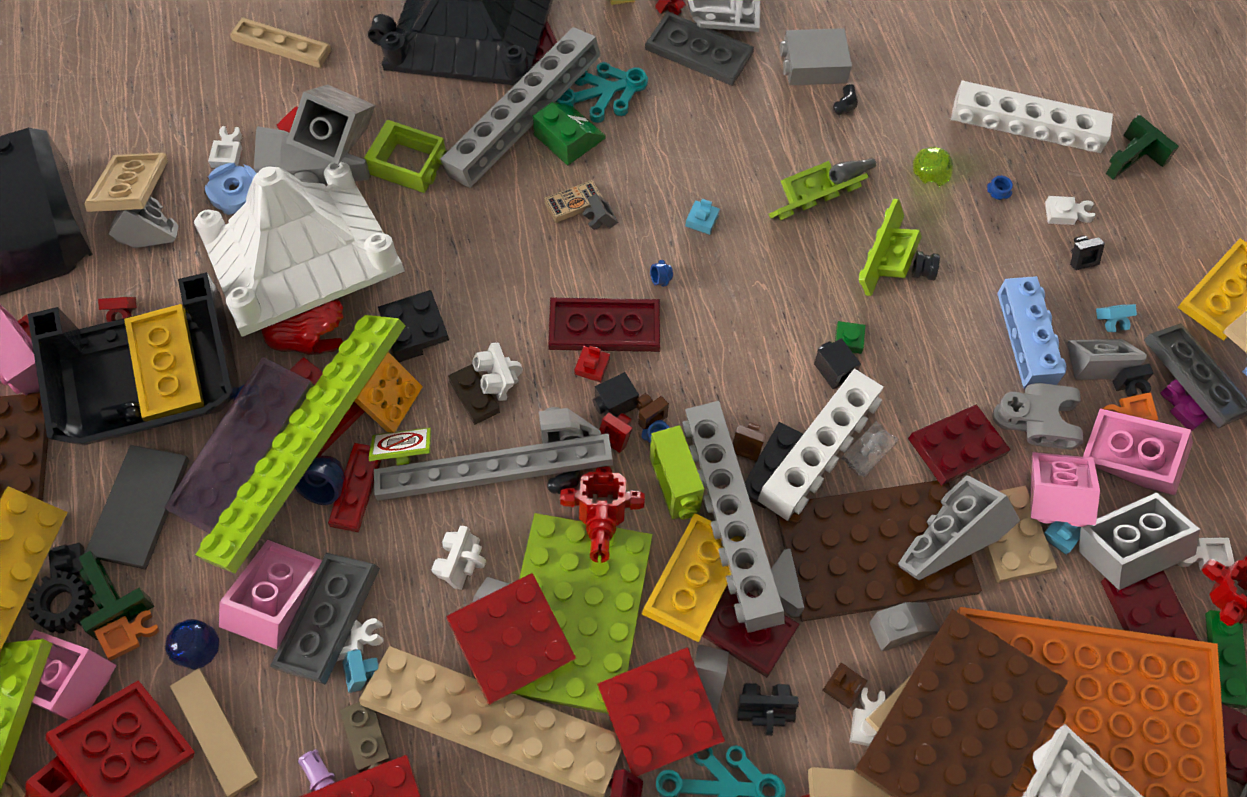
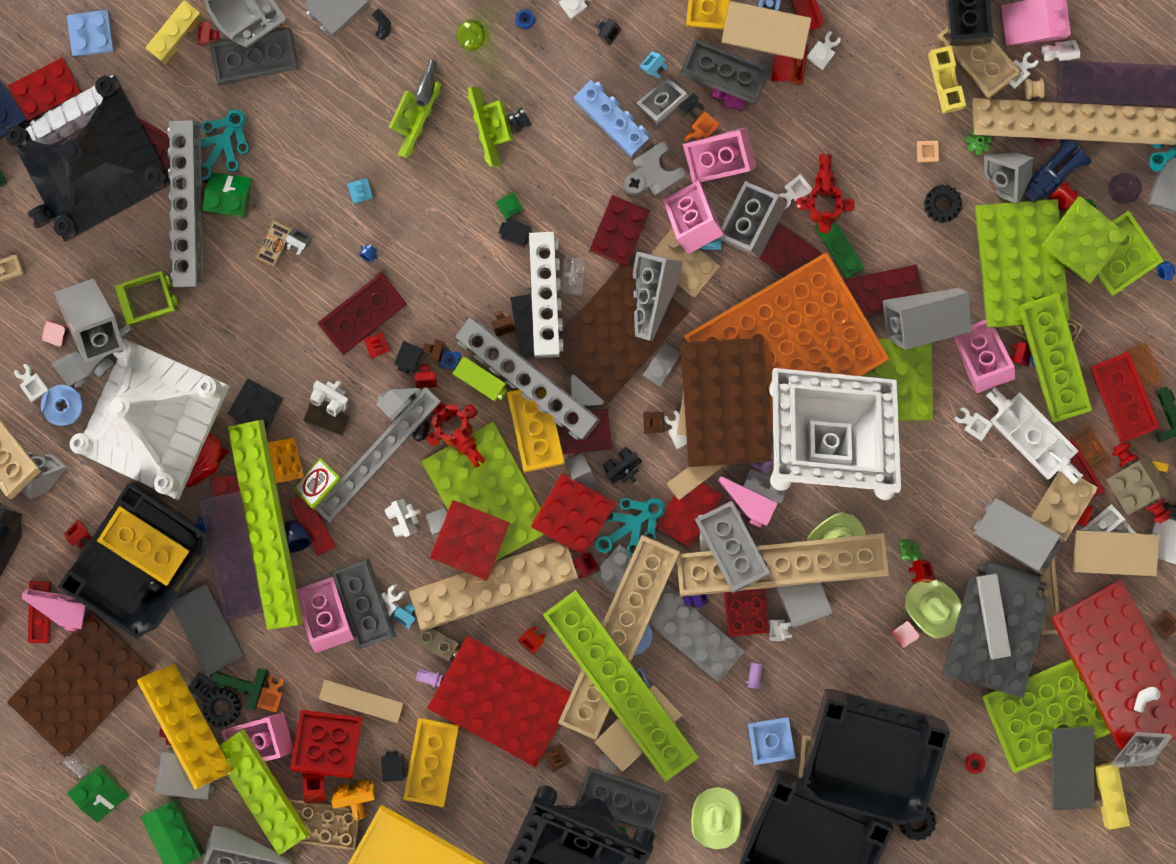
camera: 30 degrees left, 25 degrees up
(192, 644) = (308, 671): clear blue hair -> none

